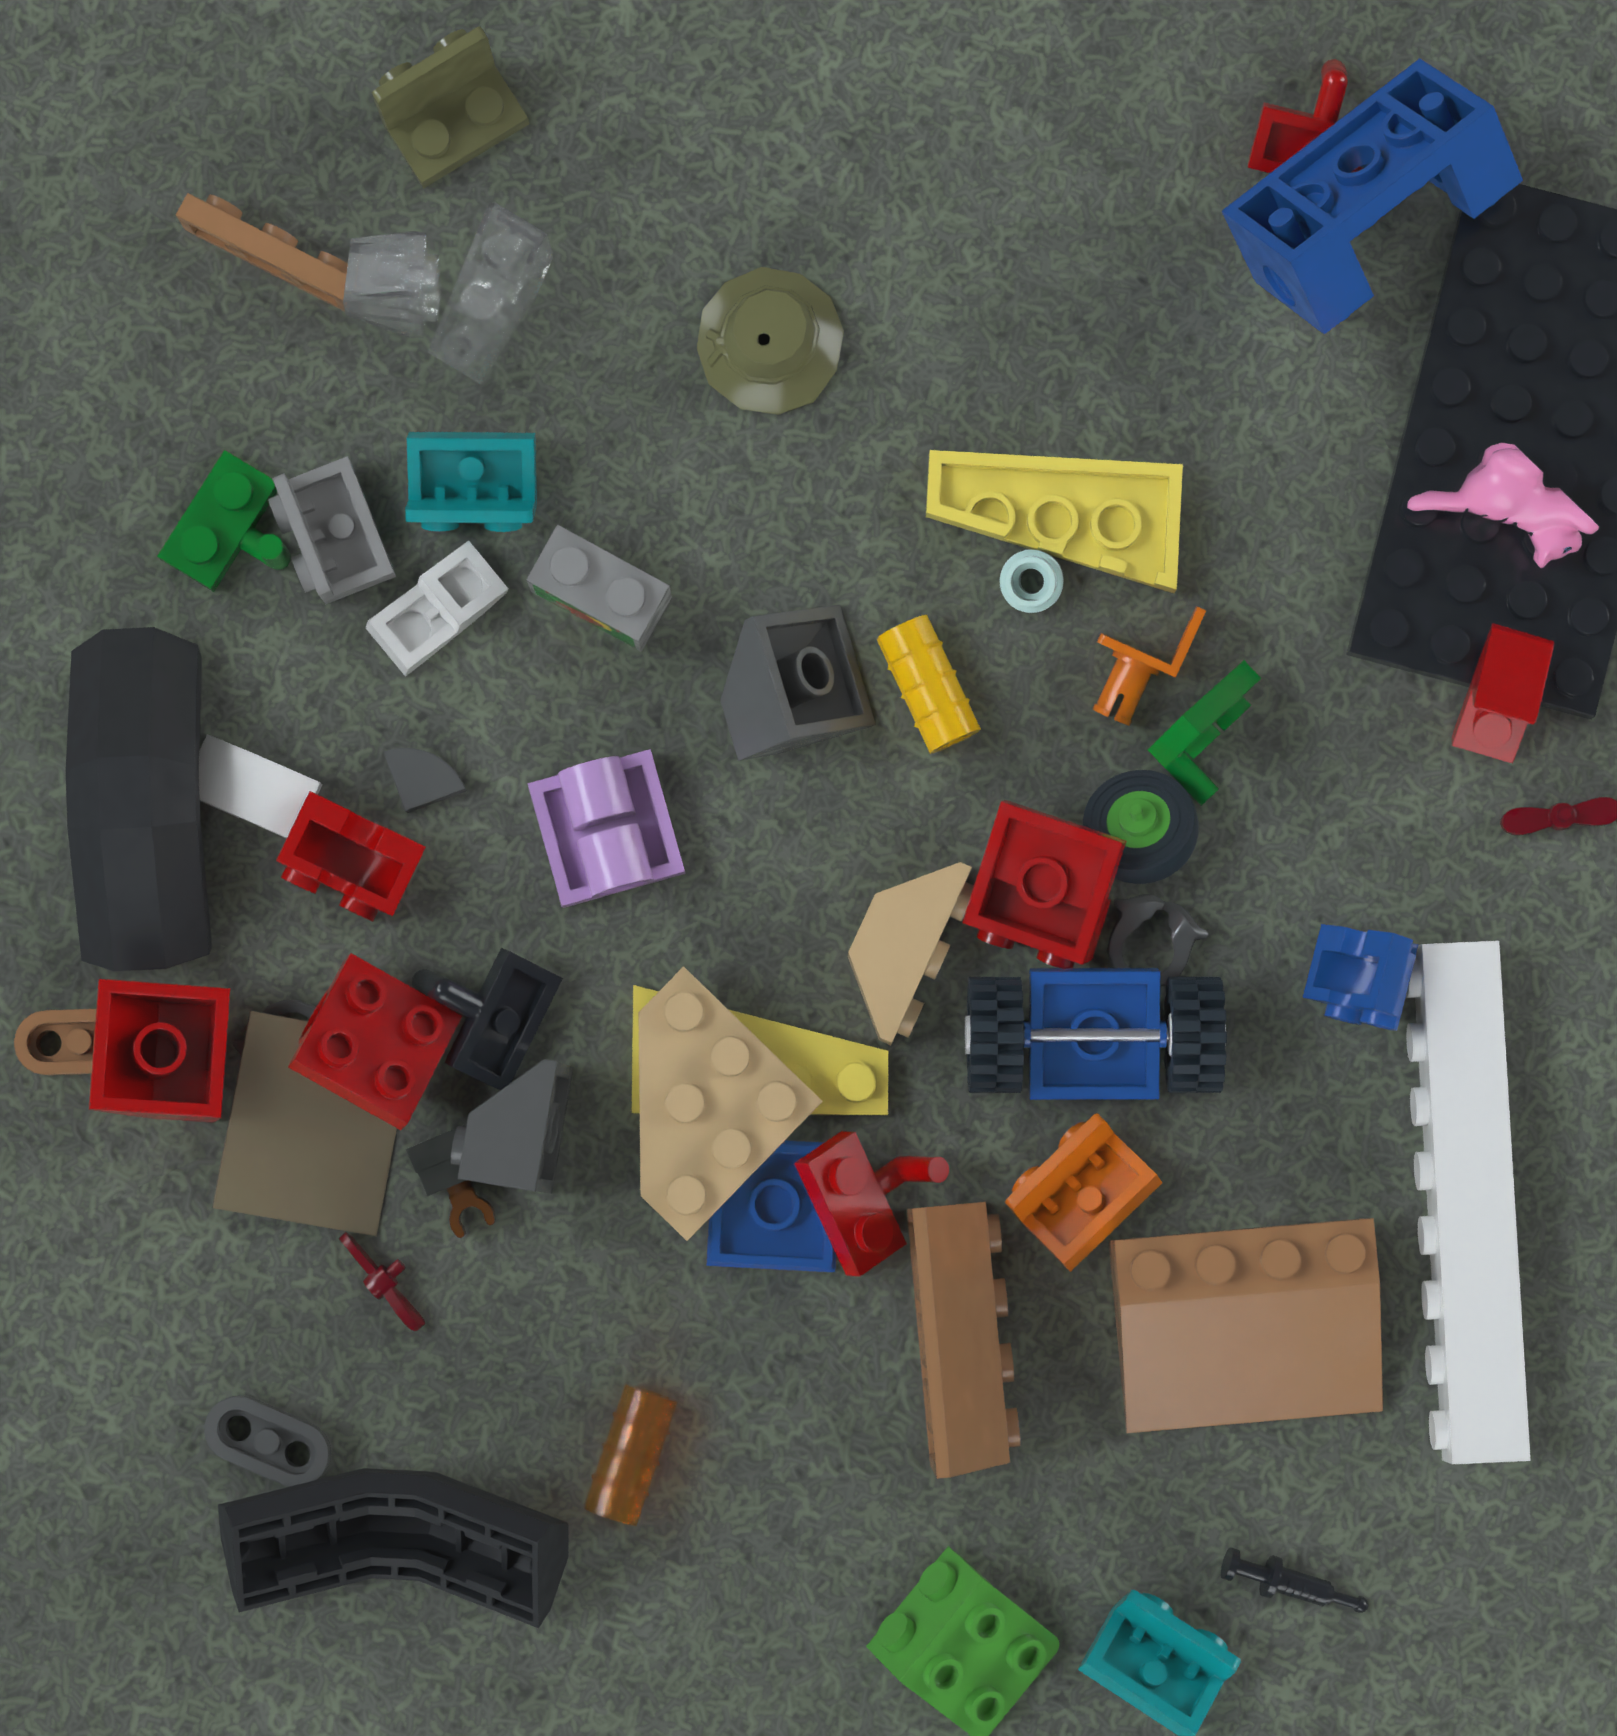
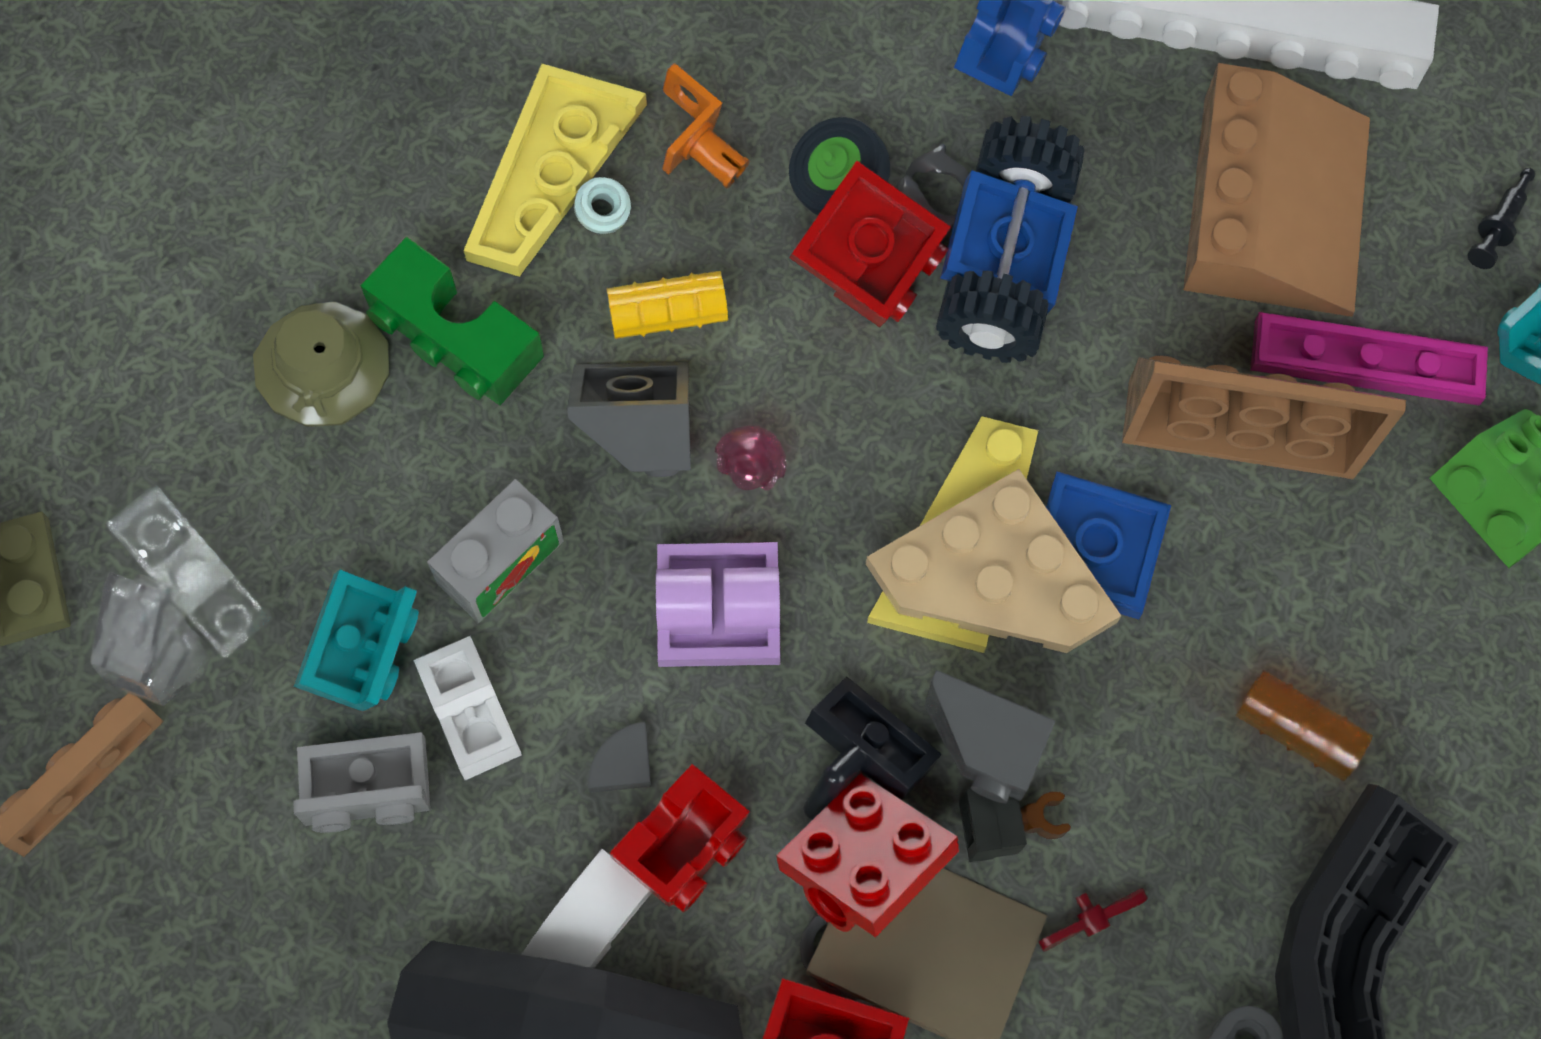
camera: 75 degrees left, 15 degrees down
(223, 523) = (321, 889): green plate -> none
(775, 820) = (751, 457): none -> clear pink plate
(853, 1198) = (1109, 473): red plate -> none
(861, 410) = (485, 353): none -> green arch
(902, 944) = (893, 380): tan slope -> none
(1074, 1459) = (1370, 358): none -> dark pink tile
(1081, 1191) = (1145, 290): orange bracket -> none
(1196, 731) = (769, 96): green plate -> none

